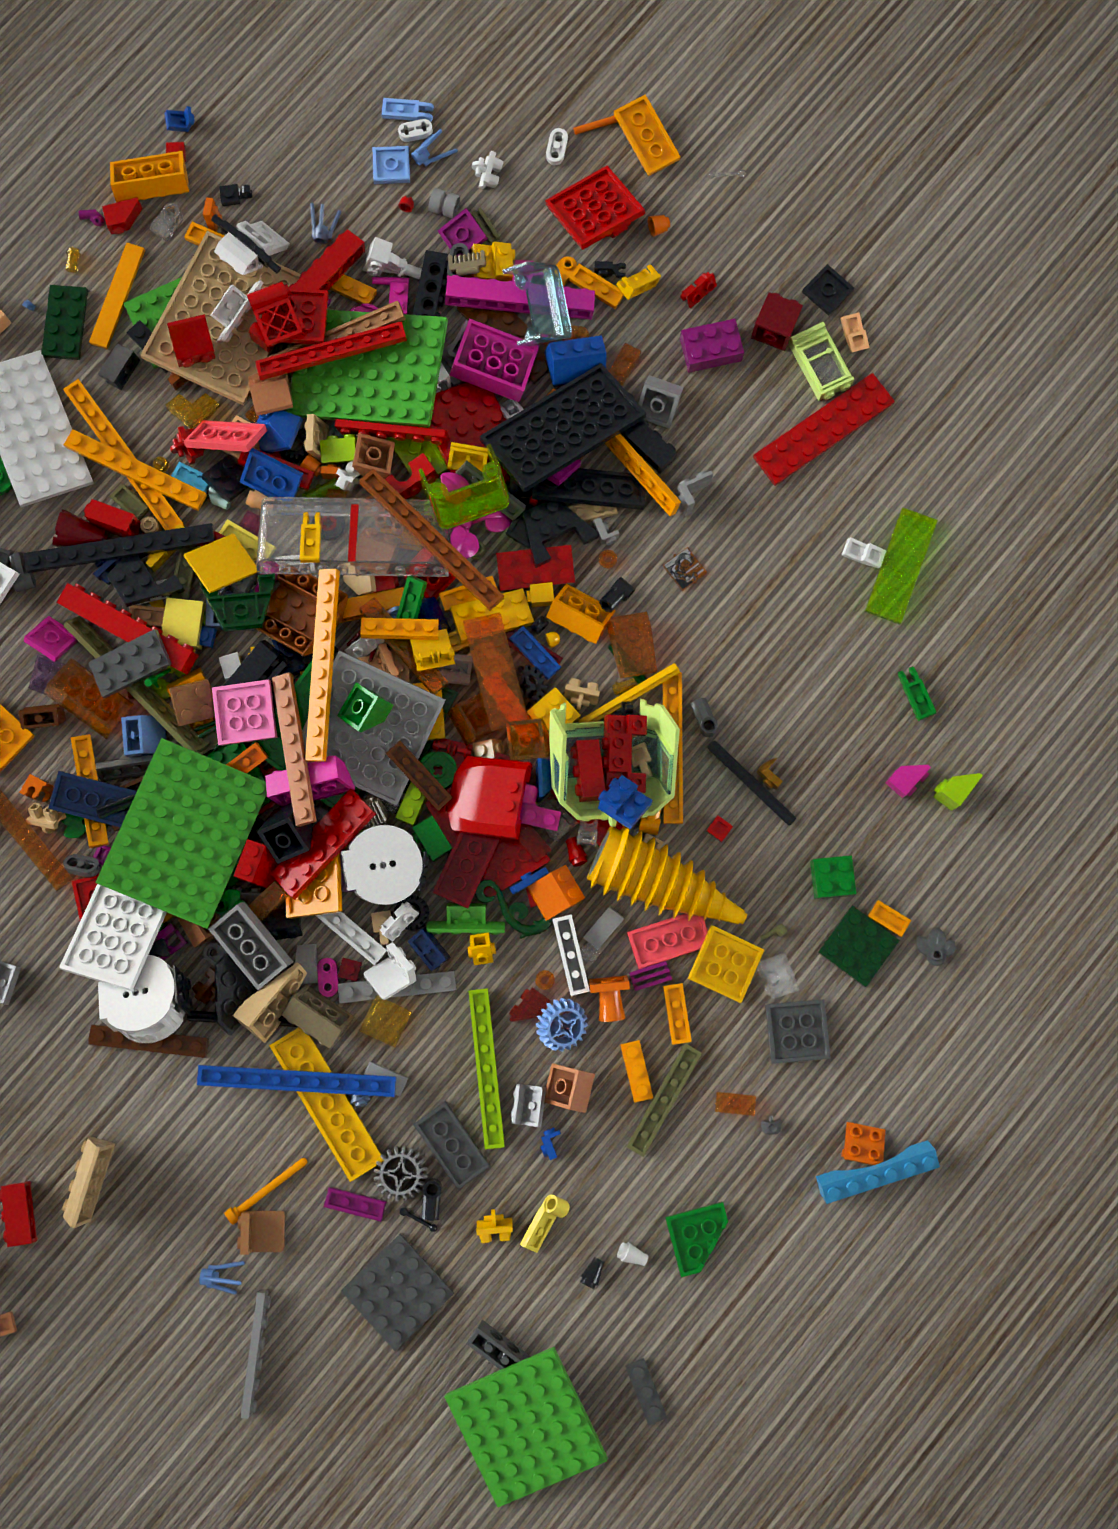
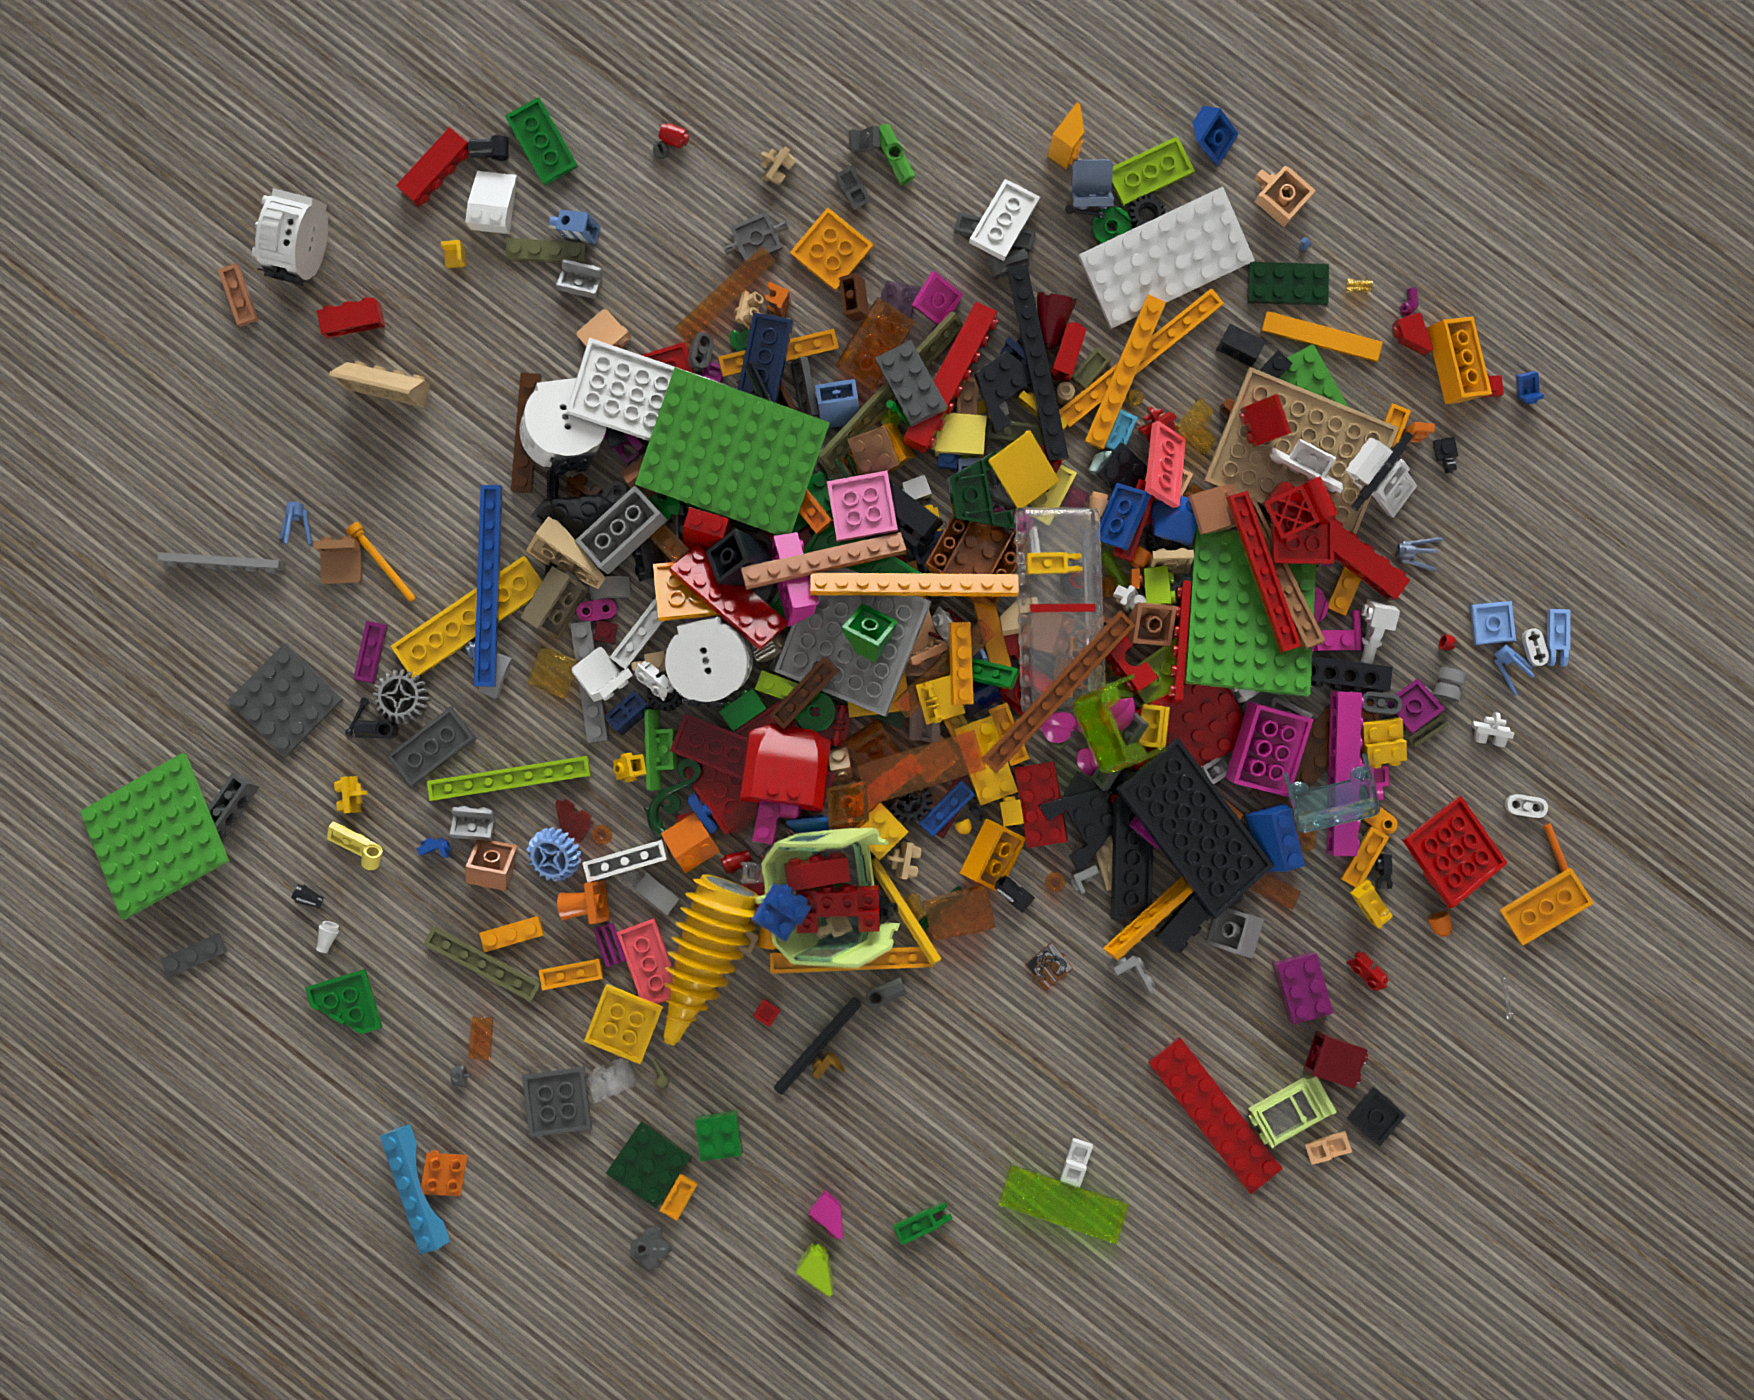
camera: 90 degrees right, 5 degrees up
(50, 958) = (604, 329): none -> light nougat bracket
(166, 222) = (1406, 381): clear piece -> none
(467, 267) = (1373, 714): dark tan piece -> none

